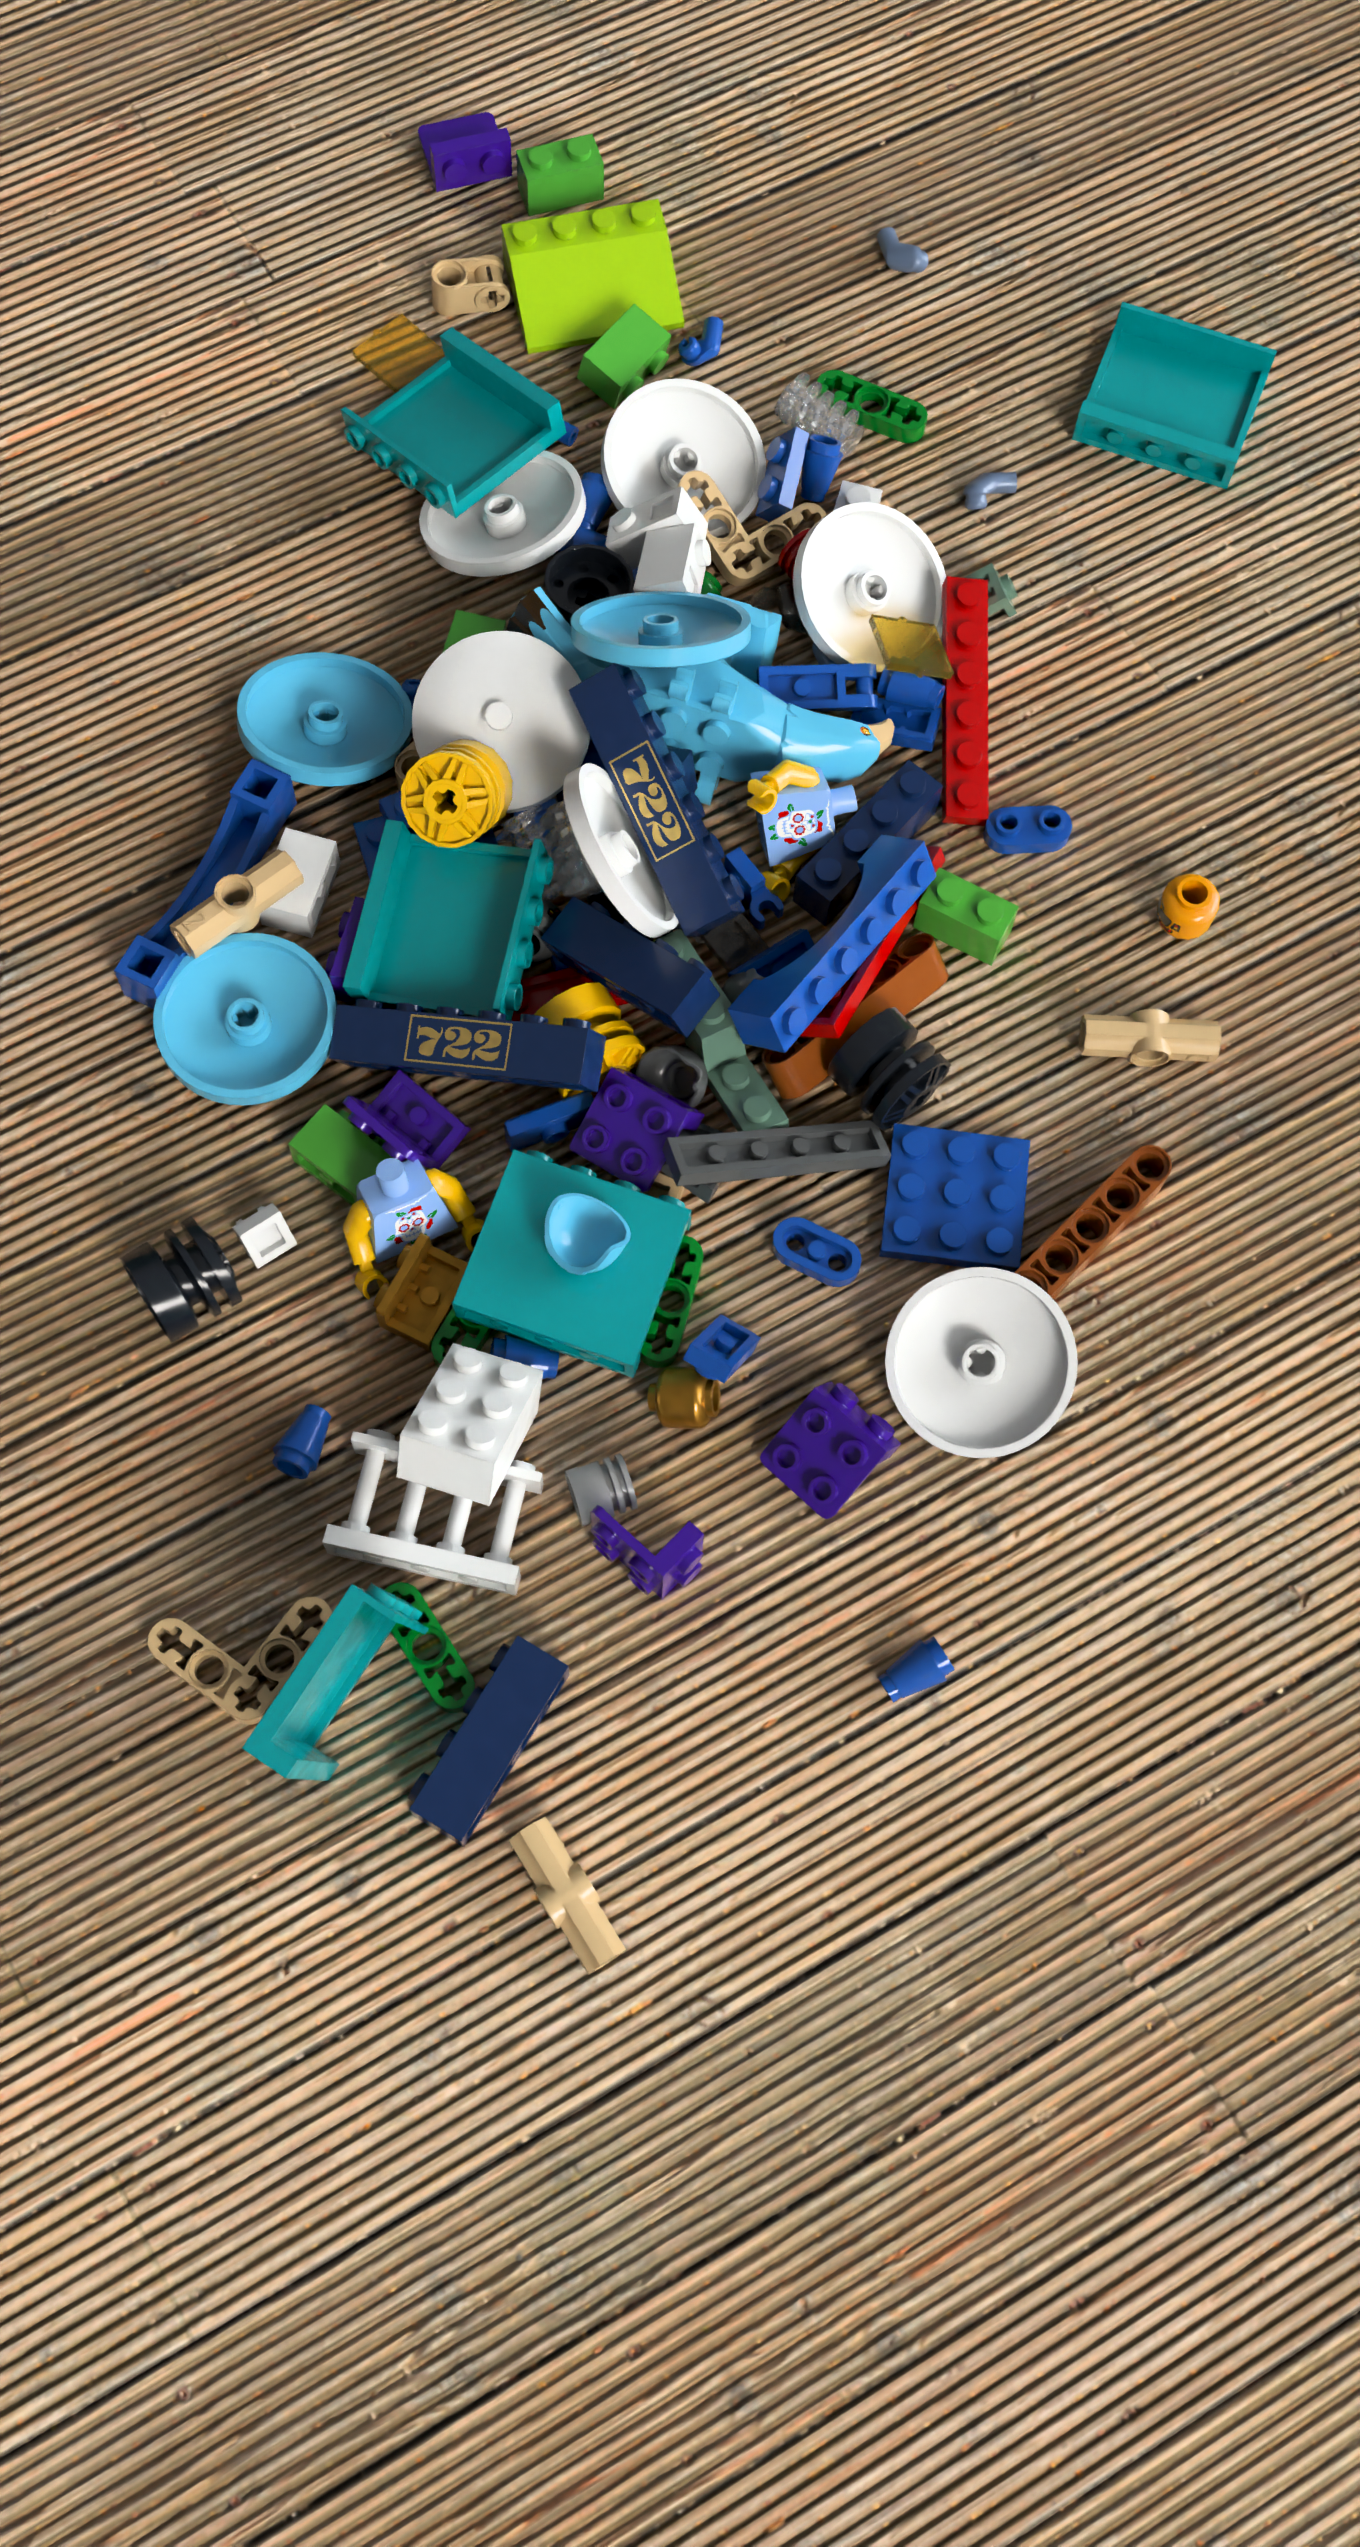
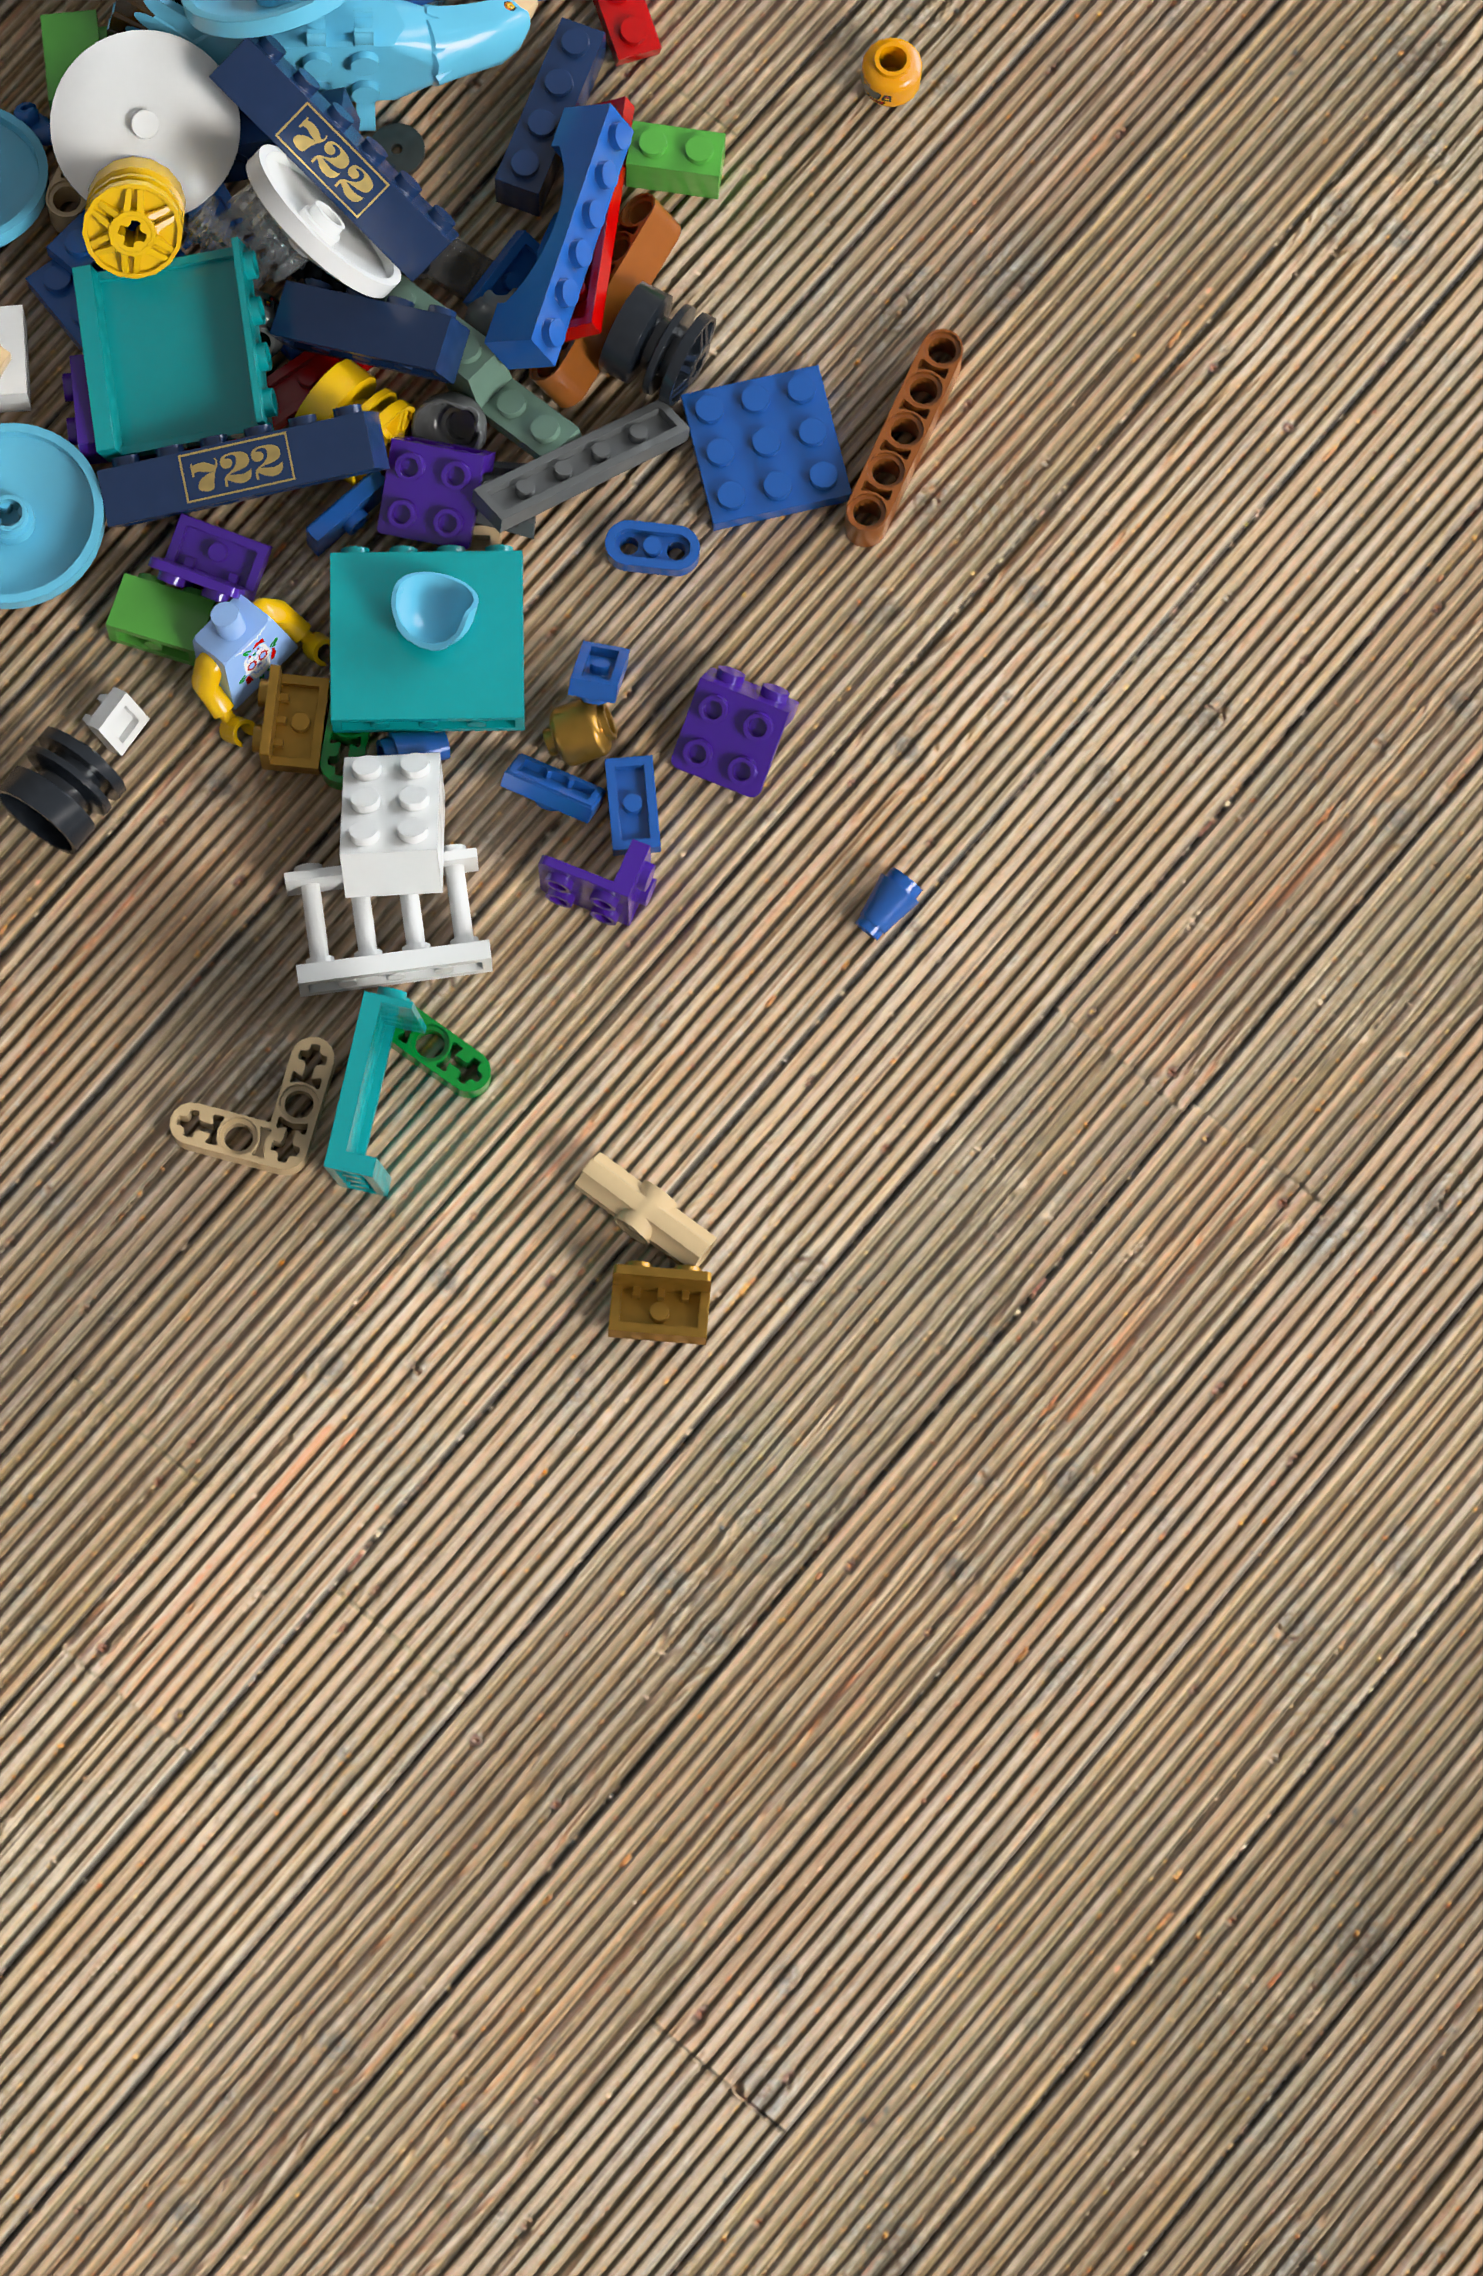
camera: 20 degrees left, 5 degrees up
(302, 1443) = (237, 904): blue cone -> none
(488, 1741) = (521, 1106): dark blue brick -> none
(544, 1996) = (660, 1303): none -> pearl gold bracket
(601, 1485) = (530, 839): light grey piece -> none
(639, 1442) = (553, 788): none -> blue plate
(674, 1335) = (546, 676): green beam -> none
(707, 1484) = (632, 802): none -> blue plate
(732, 819) = (408, 140): none -> pearl dark grey wheel
(753, 886) = (452, 199): blue plate -> none
(794, 817) = (471, 121): torso -> none
(981, 1362) = (847, 598): white dish -> none
(1029, 830) = (707, 44): blue plate -> none
(1149, 1038) = (899, 220): tan piece -> none

